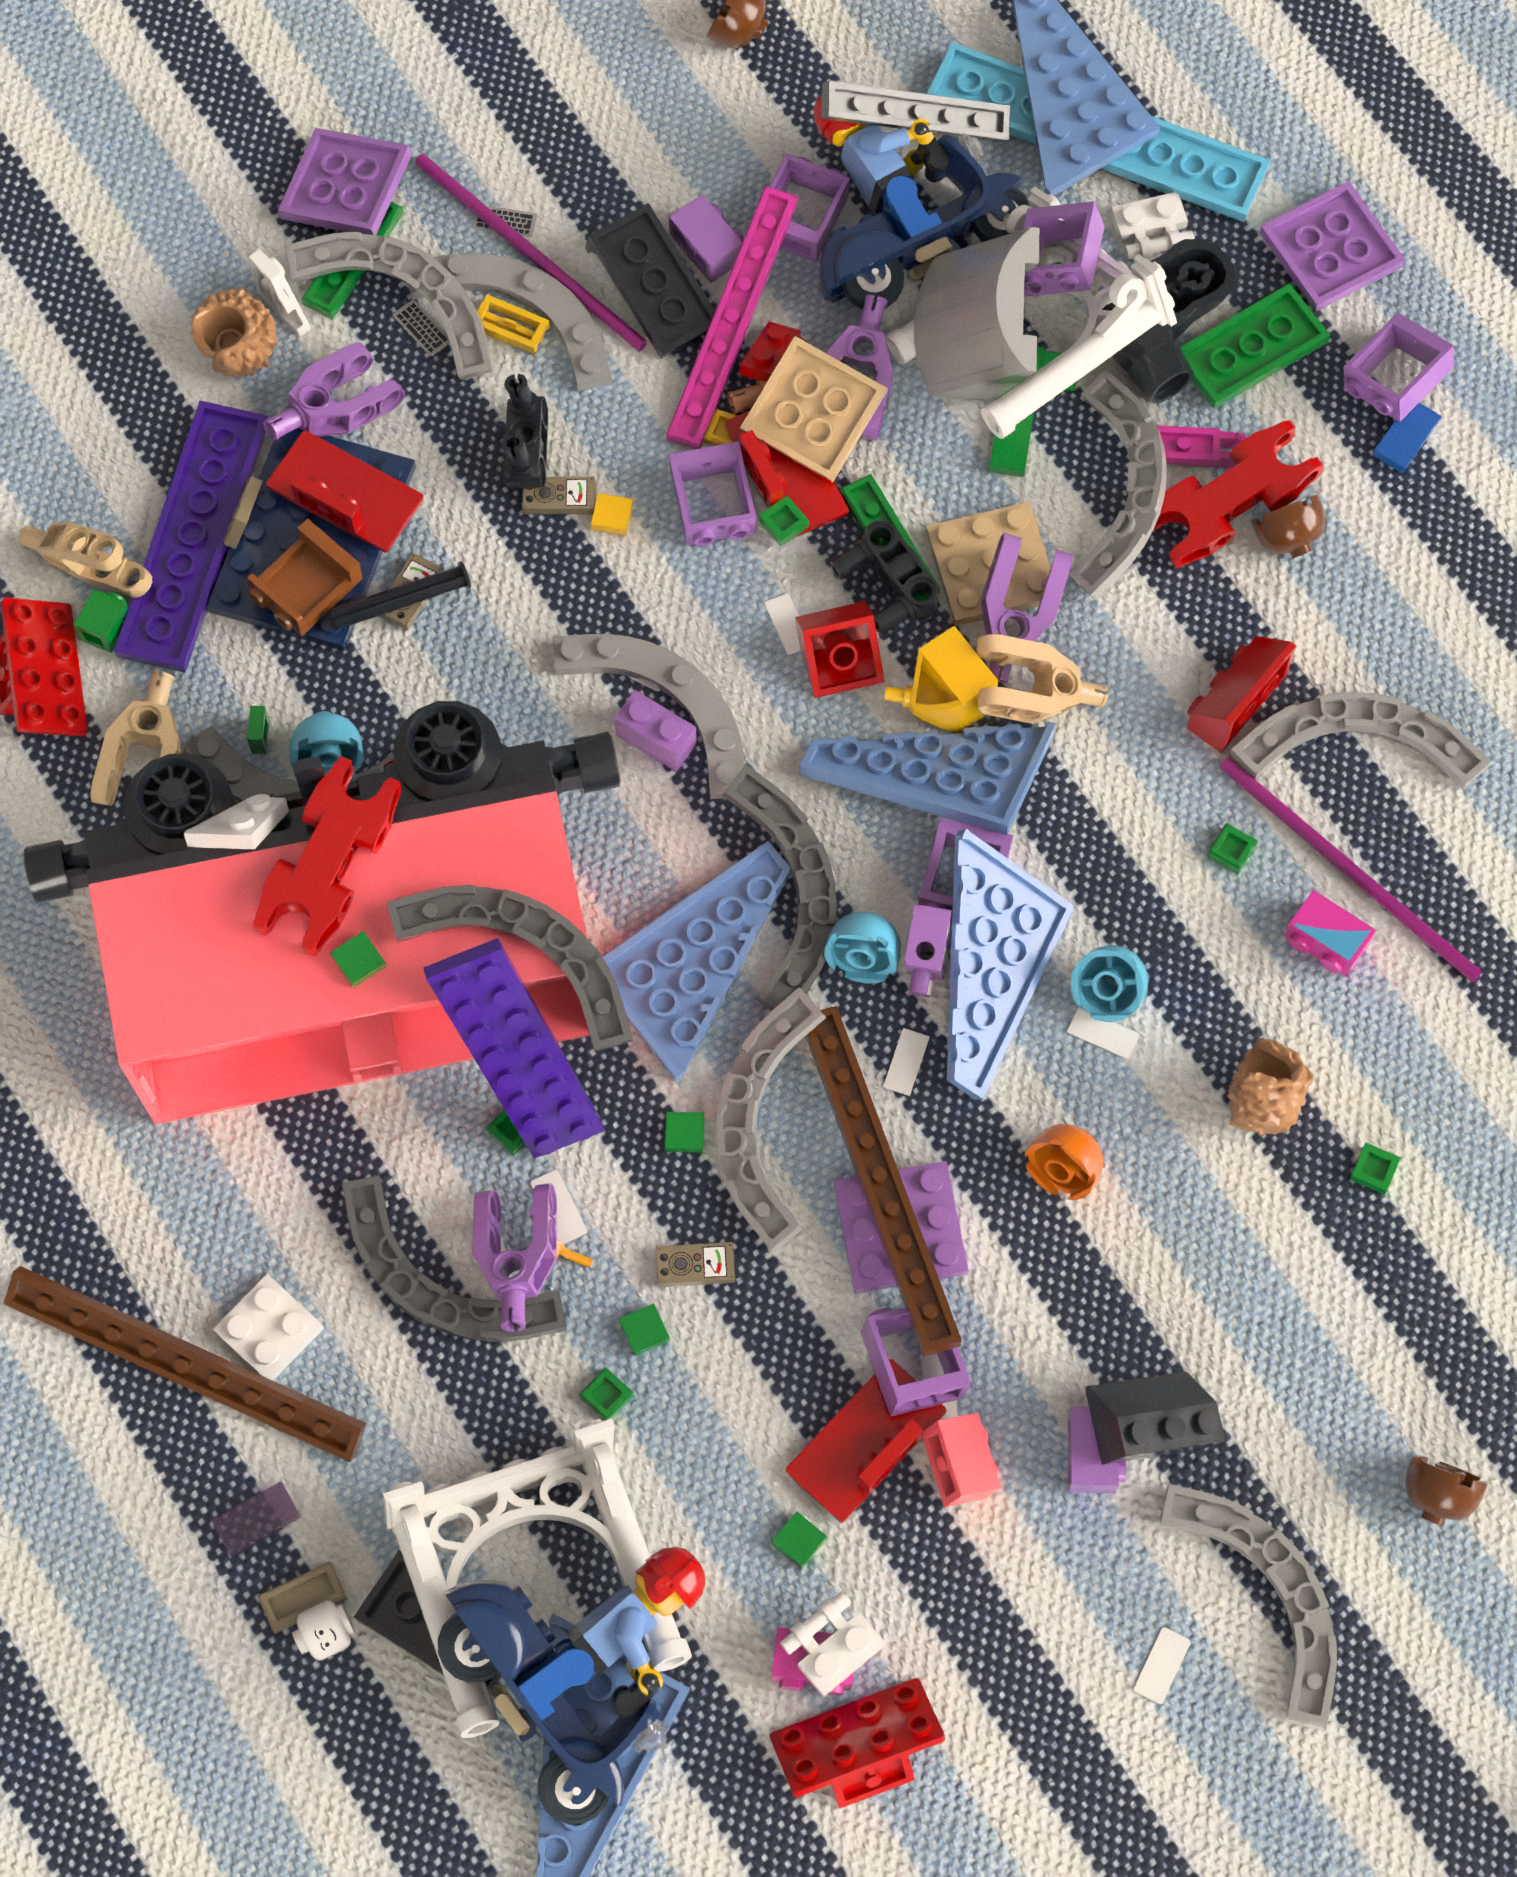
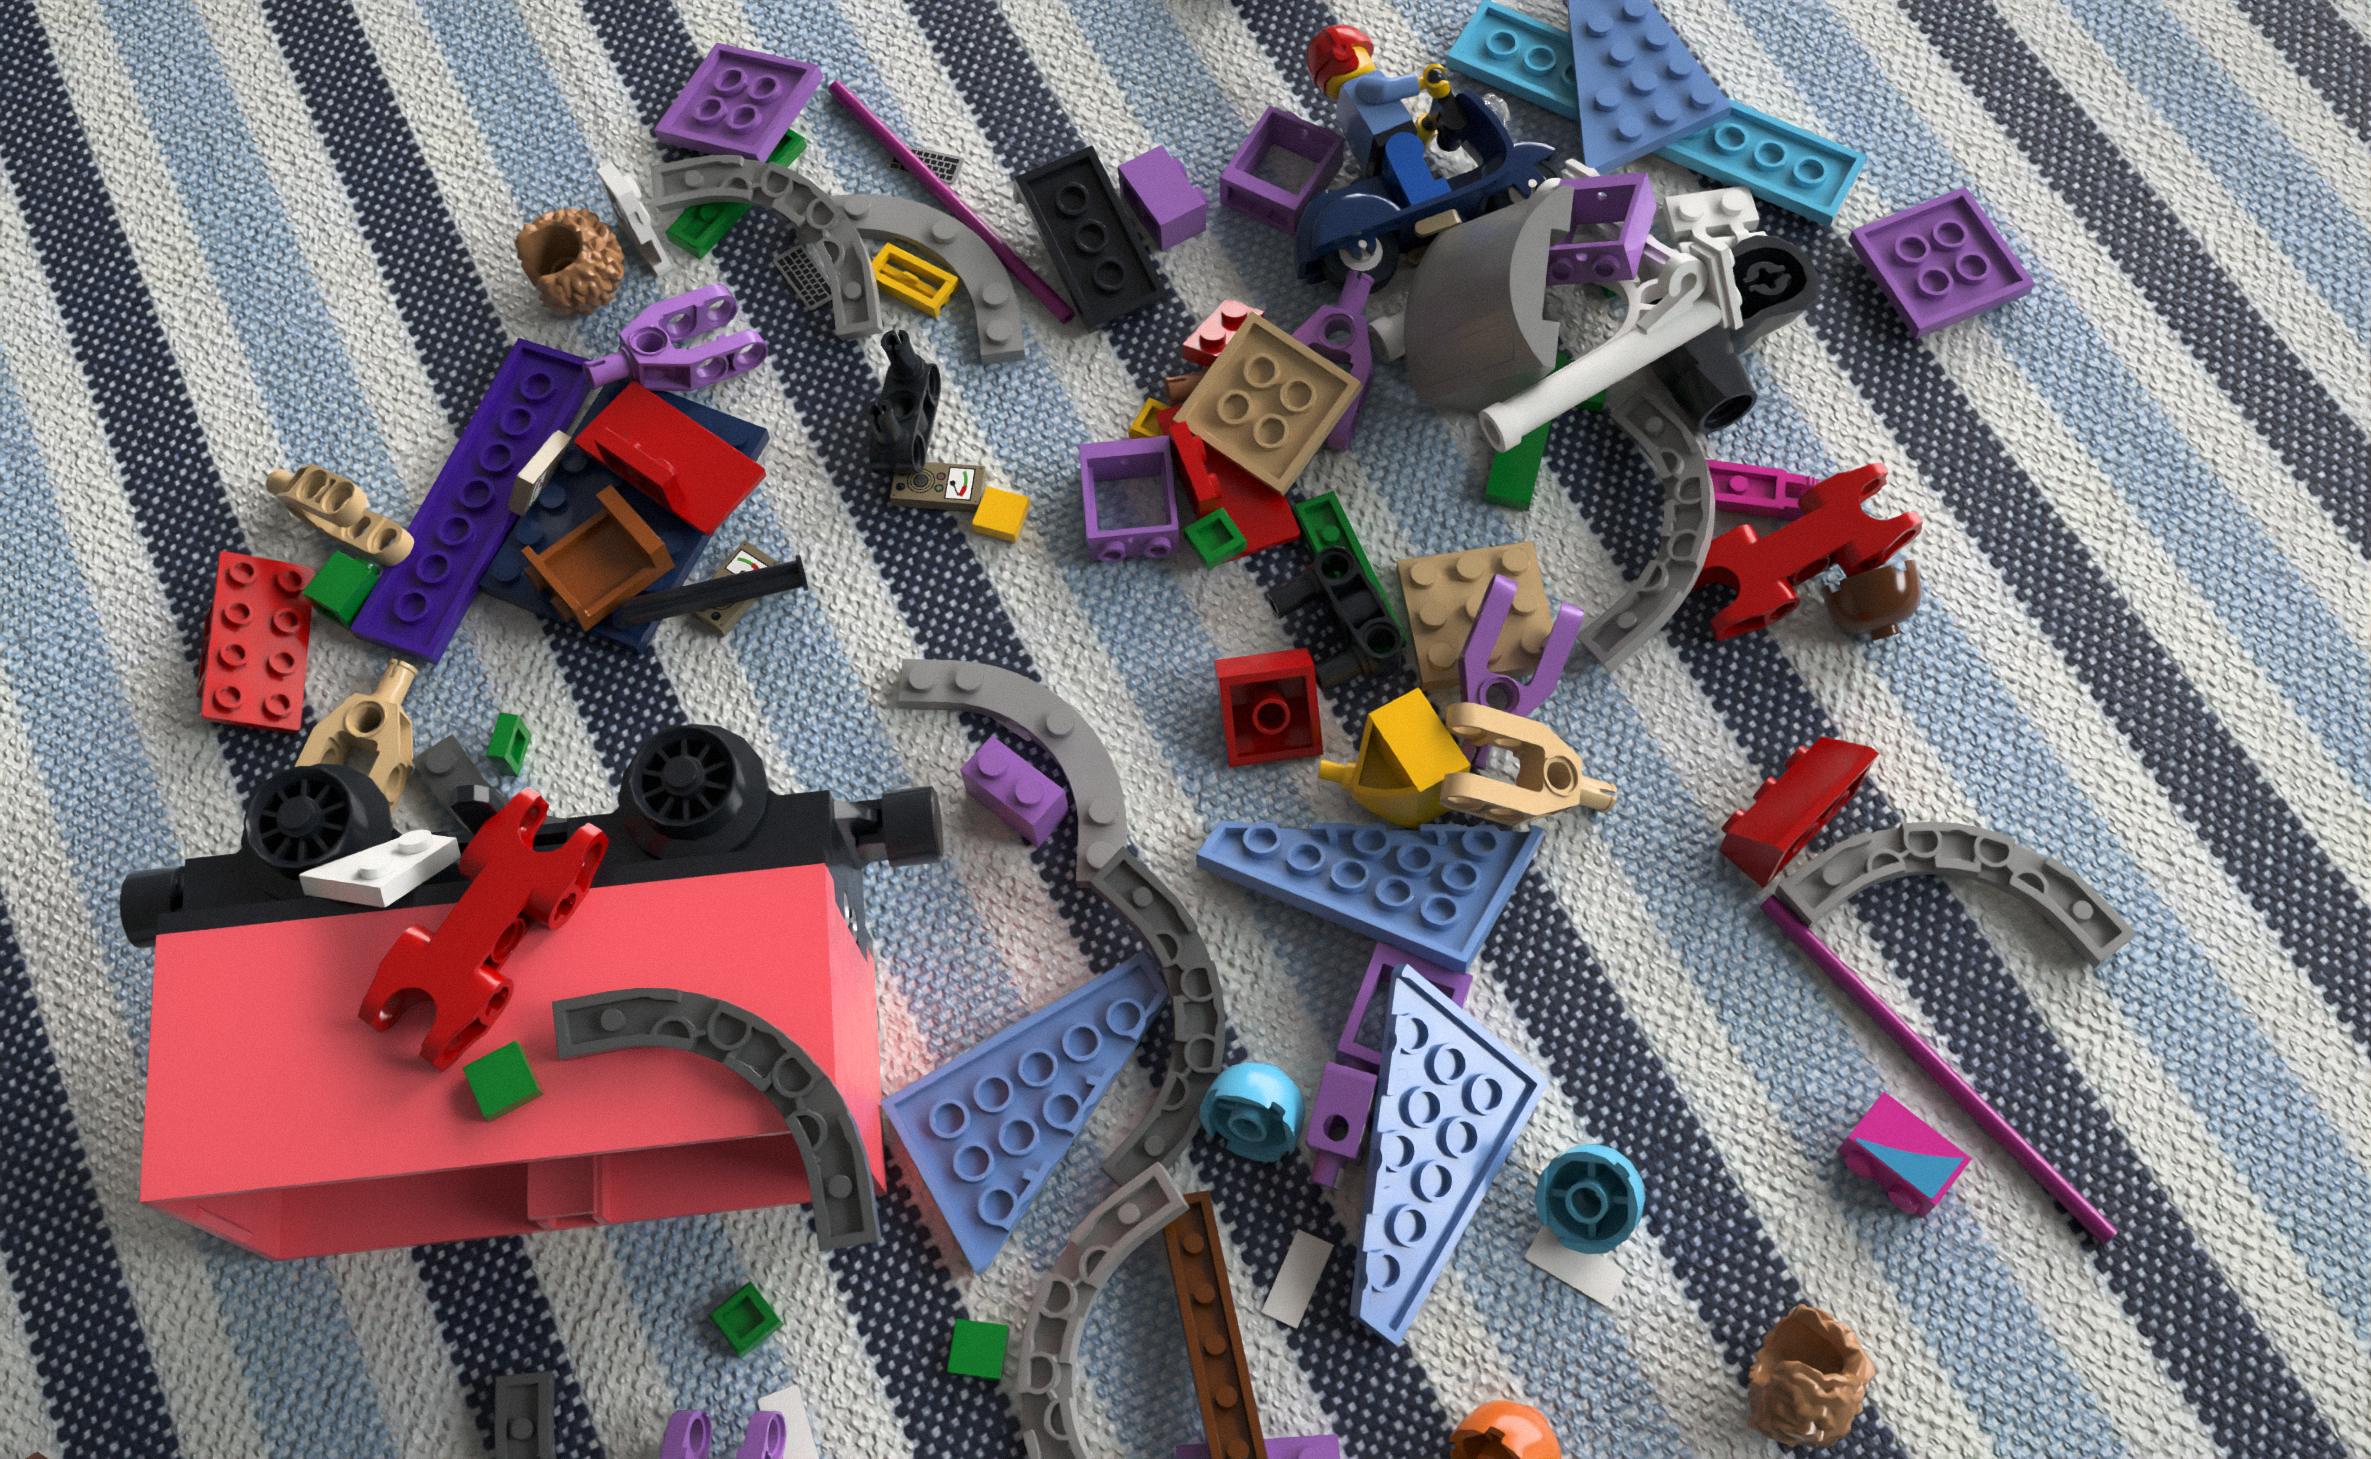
camera: 10 degrees right, 5 degrees down
(327, 738) = (582, 772): medium azure cylinder -> none
(514, 1047) = (723, 1219): dark purple plate -> none
(732, 318) = (1180, 290): dark pink tile -> none
(783, 617) = (1200, 654): white sticker -> none
(901, 108) = (1405, 52): plate -> none
(1232, 848) = (1771, 1020): green tile -> none
(1253, 345) = (1835, 373): green plate -> none
(1407, 437) = (2029, 498): blue tile -> none
(1414, 341) = (2028, 372): medium lavender window -> none

